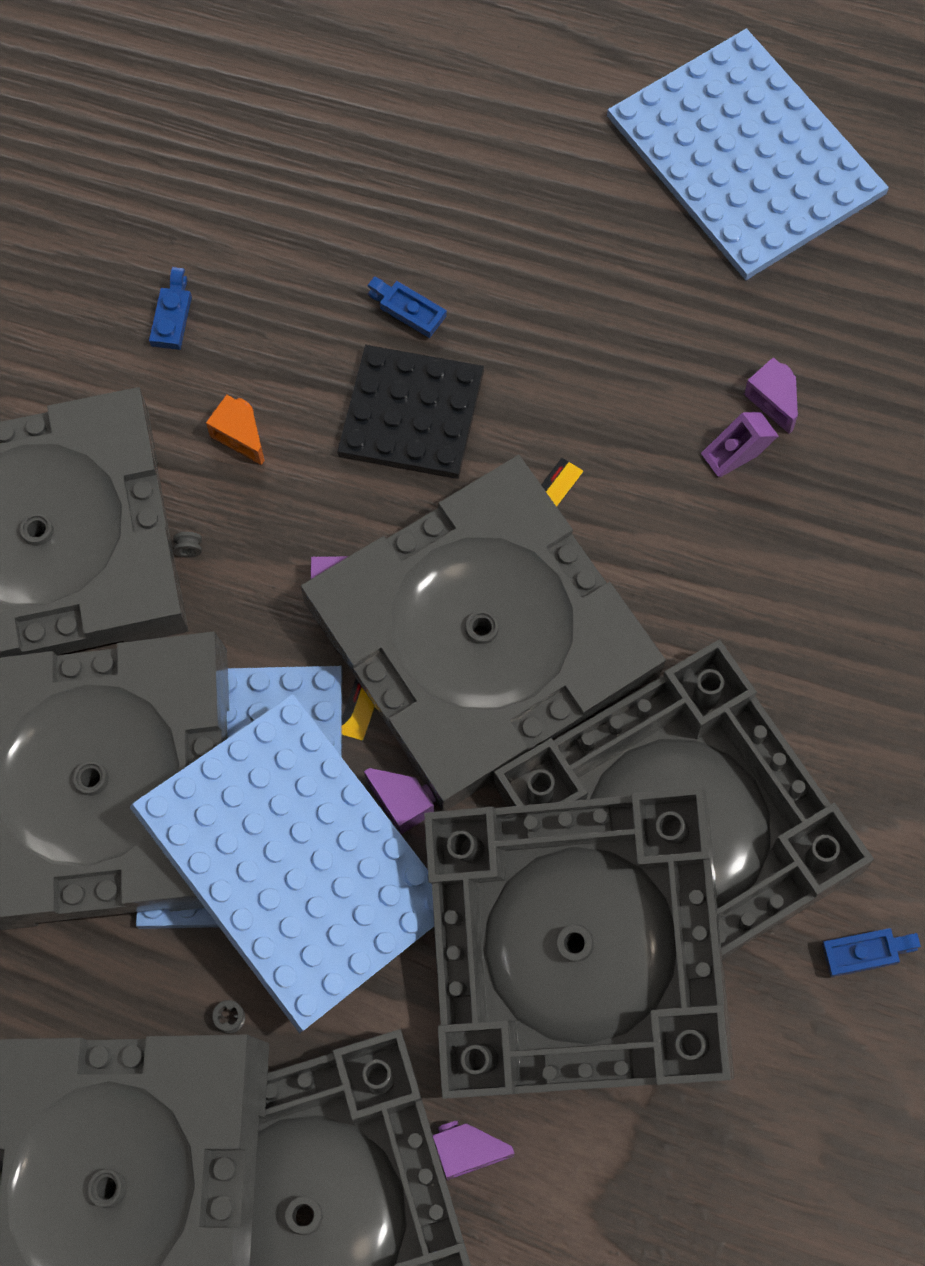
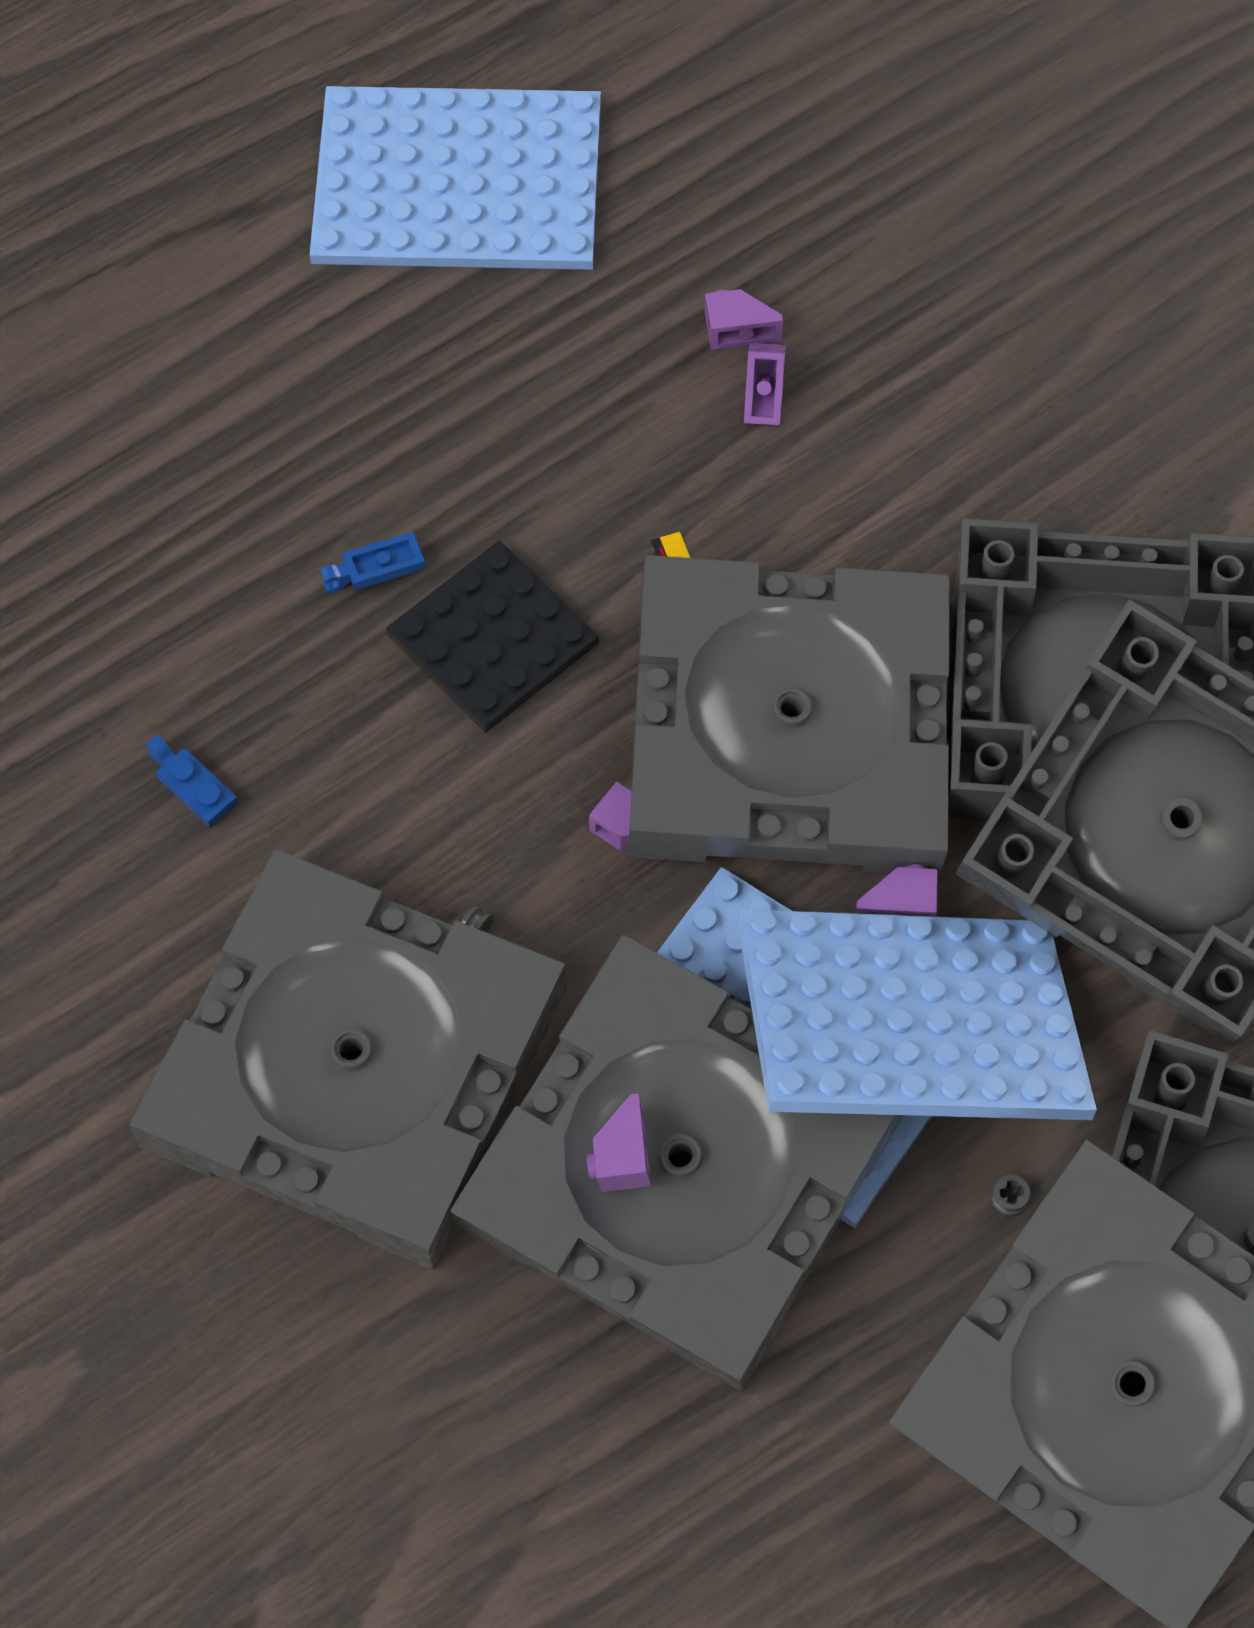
camera: 55 degrees left, 5 degrees down
(63, 736) = (621, 1150): none -> medium lavender slope
(236, 427) = (386, 798): orange slope -> none
(357, 713) = (774, 882): yellow sticker -> none

